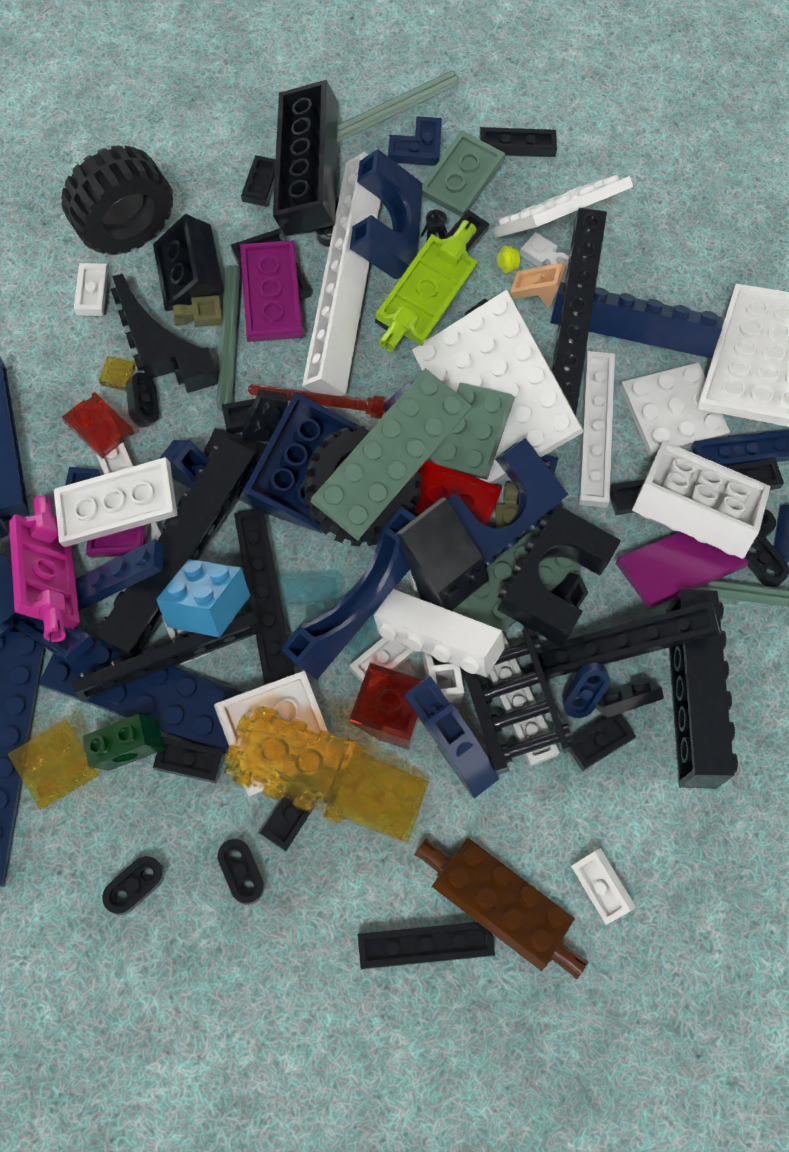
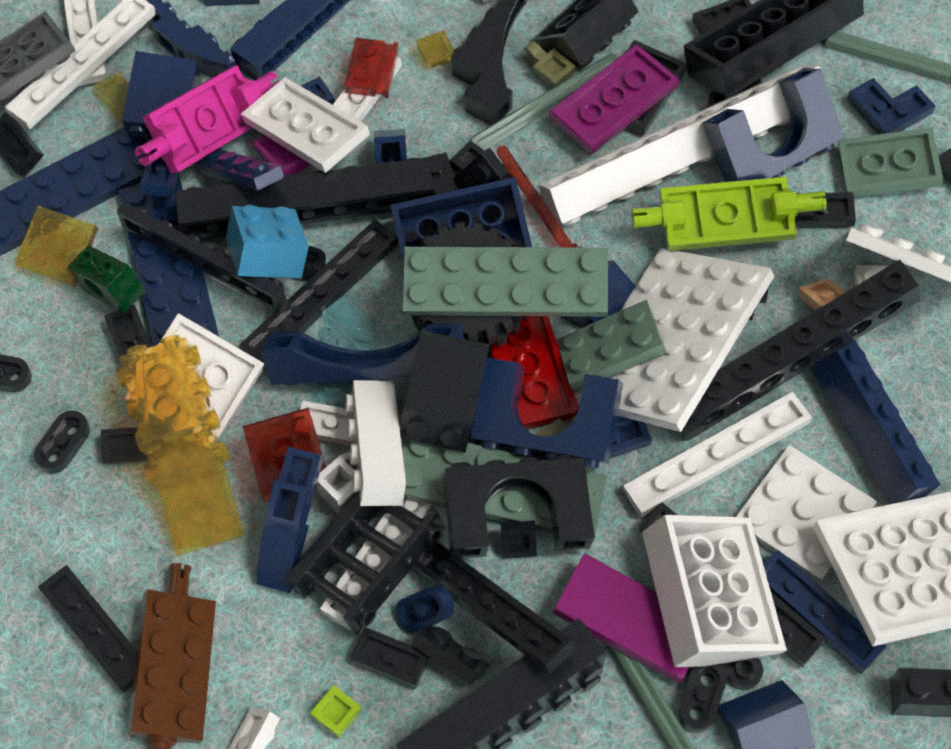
camera: 60 degrees right, 5 degrees down
(142, 399) = (423, 83): black plate -> none
(435, 223) = (808, 175): black piece -> none
(508, 259) = (833, 261): neon yellow plate -> none
(617, 805) = (336, 711): none -> lime plate

